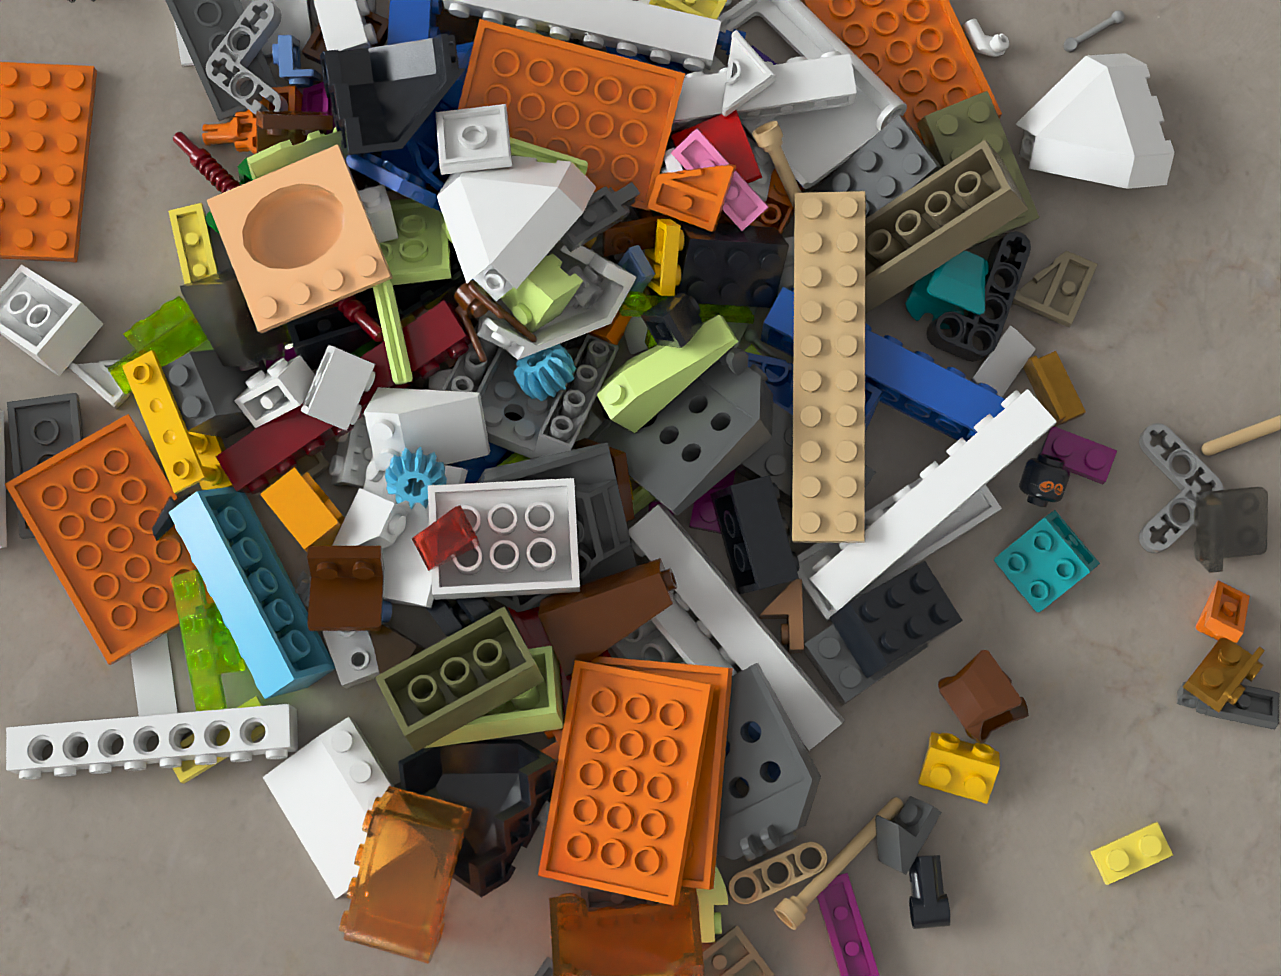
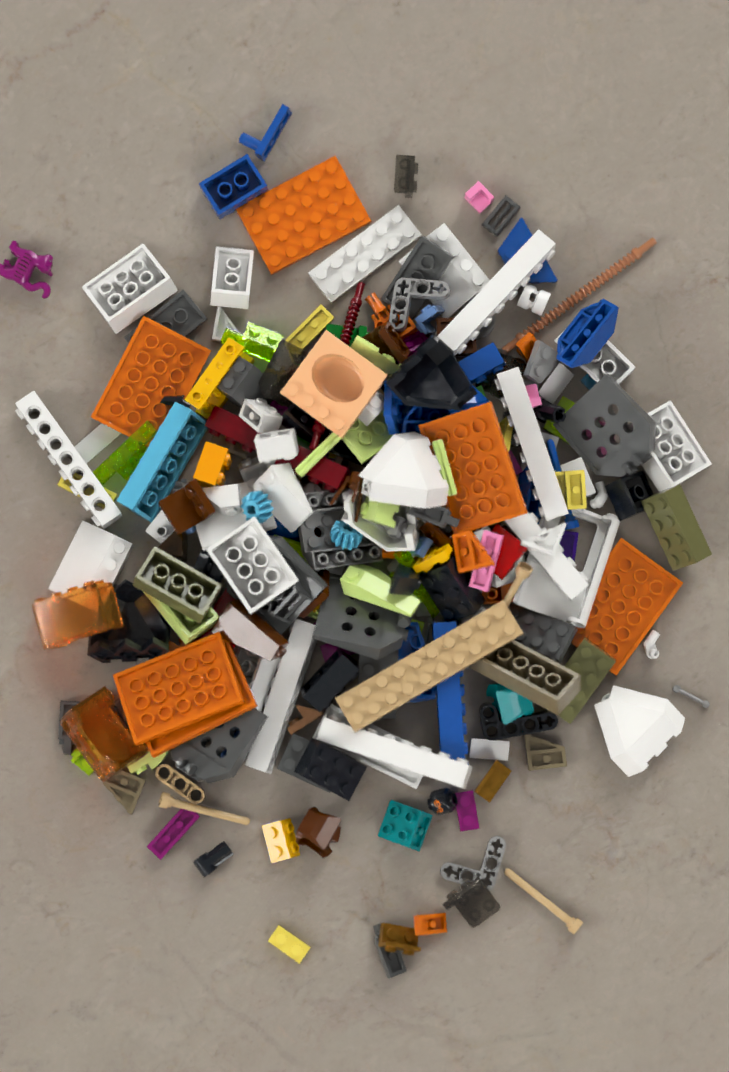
camera: 55 degrees right, 5 degrees up
(137, 107) = (364, 254): none -> white plate
(446, 539) = (233, 540): clear red slope -> none
(473, 139) = (431, 434): white tile -> none
(903, 840) = (230, 833): dark grey slope -> none

